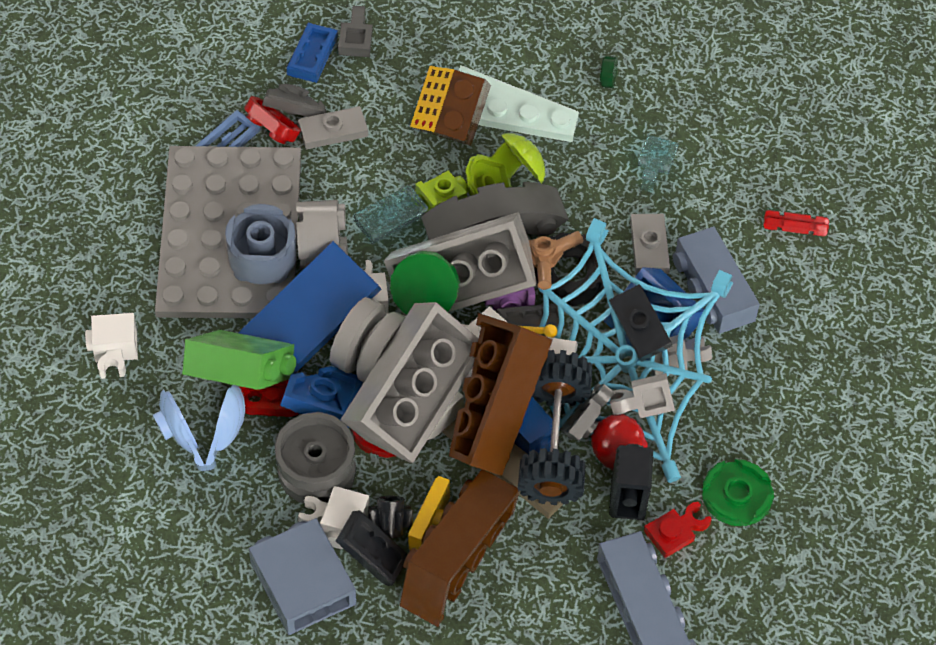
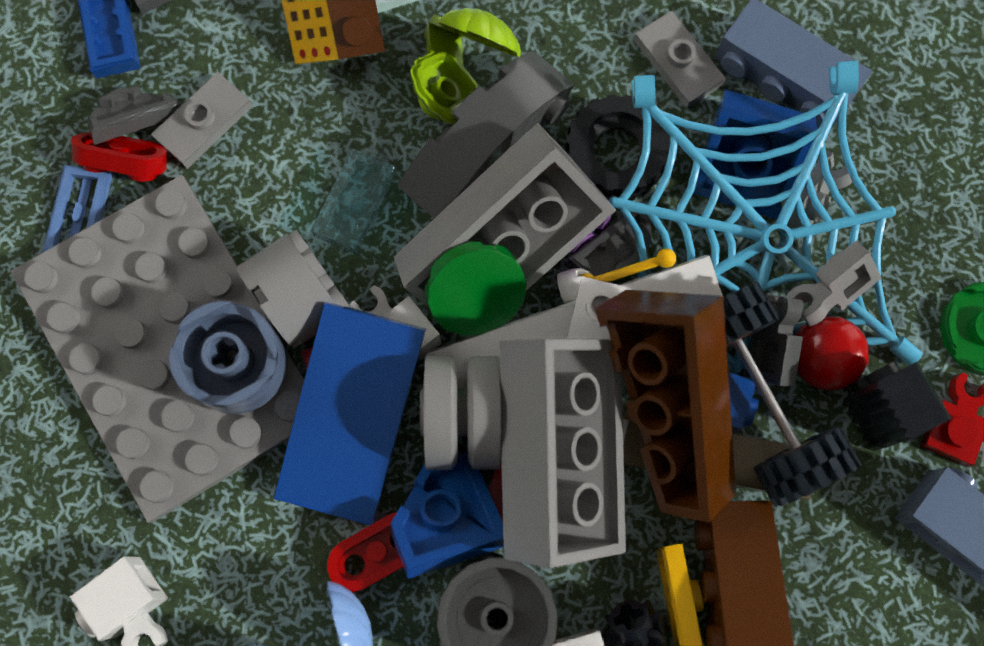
camera: 30 degrees left, 20 degrees up
(238, 359) = (310, 548): bright green brick -> none
(441, 189) = (400, 149): lime brick -> none
(547, 253) = (593, 152): medium nougat piece -> none
(640, 322) = (774, 186): black plate -> none

